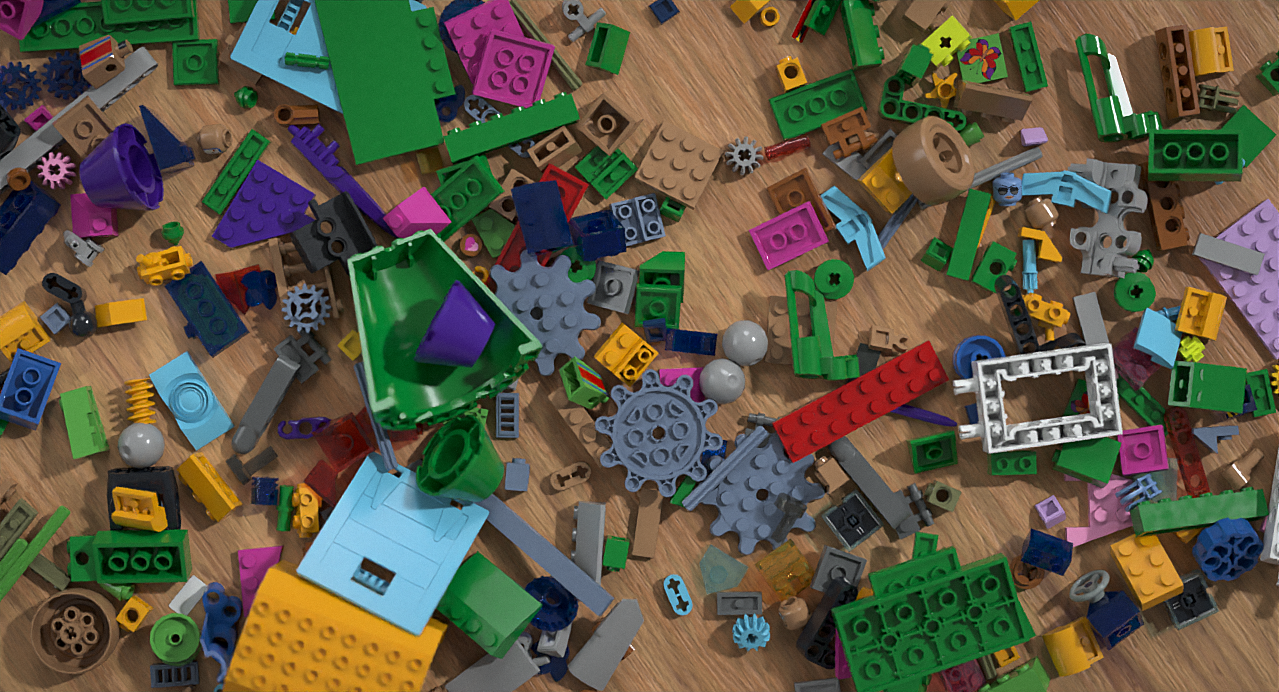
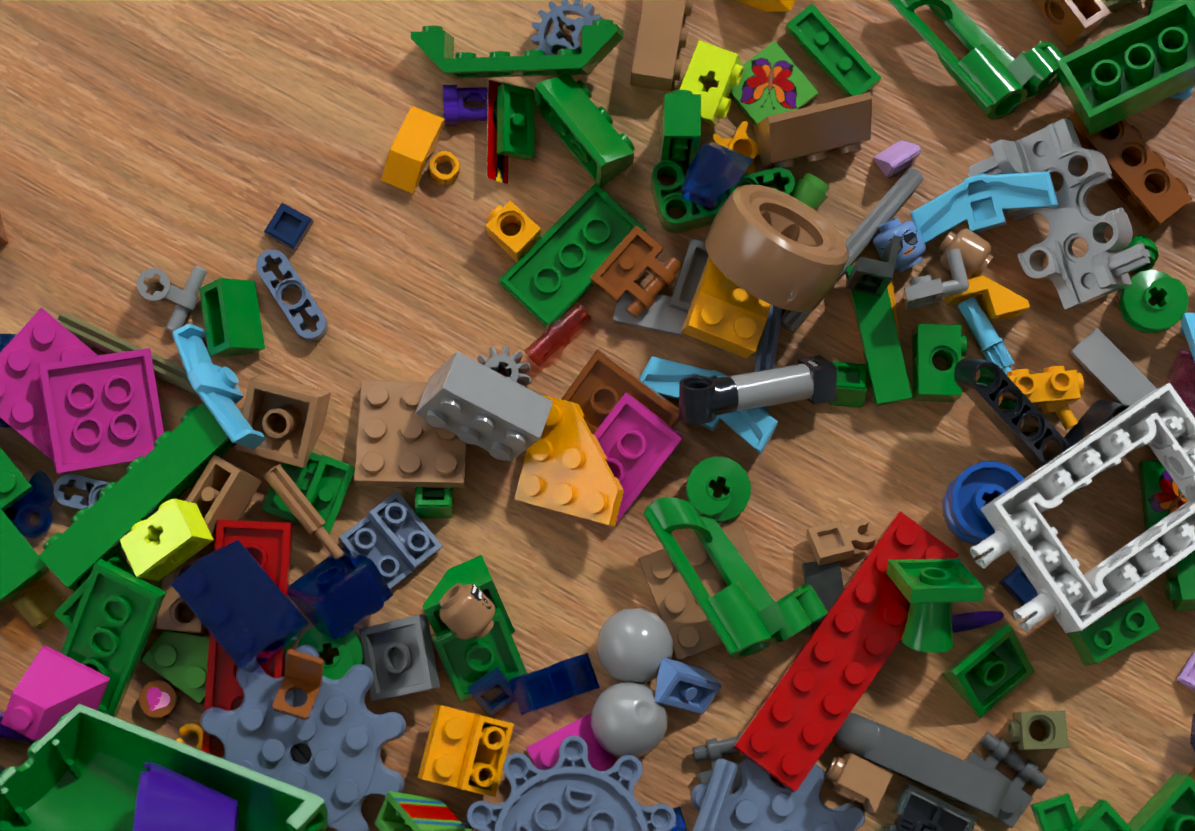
camera: 25 degrees left, 10 degrees down
(517, 161) = (166, 539): none -> neon yellow brick
(559, 272) = (301, 673): none -> dark orange bracket
(581, 85) = (215, 386): none -> medium azure plate
(598, 178) = (301, 508): none -> medium nougat axle
(651, 34) = (287, 270): none -> sand blue beam
(663, 281) = (467, 611): none -> medium nougat head
(725, 172) = (484, 407): none -> light grey brick
(756, 226) = (569, 469): none -> light orange plate
(761, 378) = (685, 686): none -> medium blue slope
(851, 226) = (705, 397): none -> piece
(920, 392) = (931, 590): none -> green plant
(921, 99) = (713, 173): none -> clear blue slope
(981, 204) = (874, 275): none -> pearl dark grey panel
(1005, 224) = (925, 291): none -> light grey plate

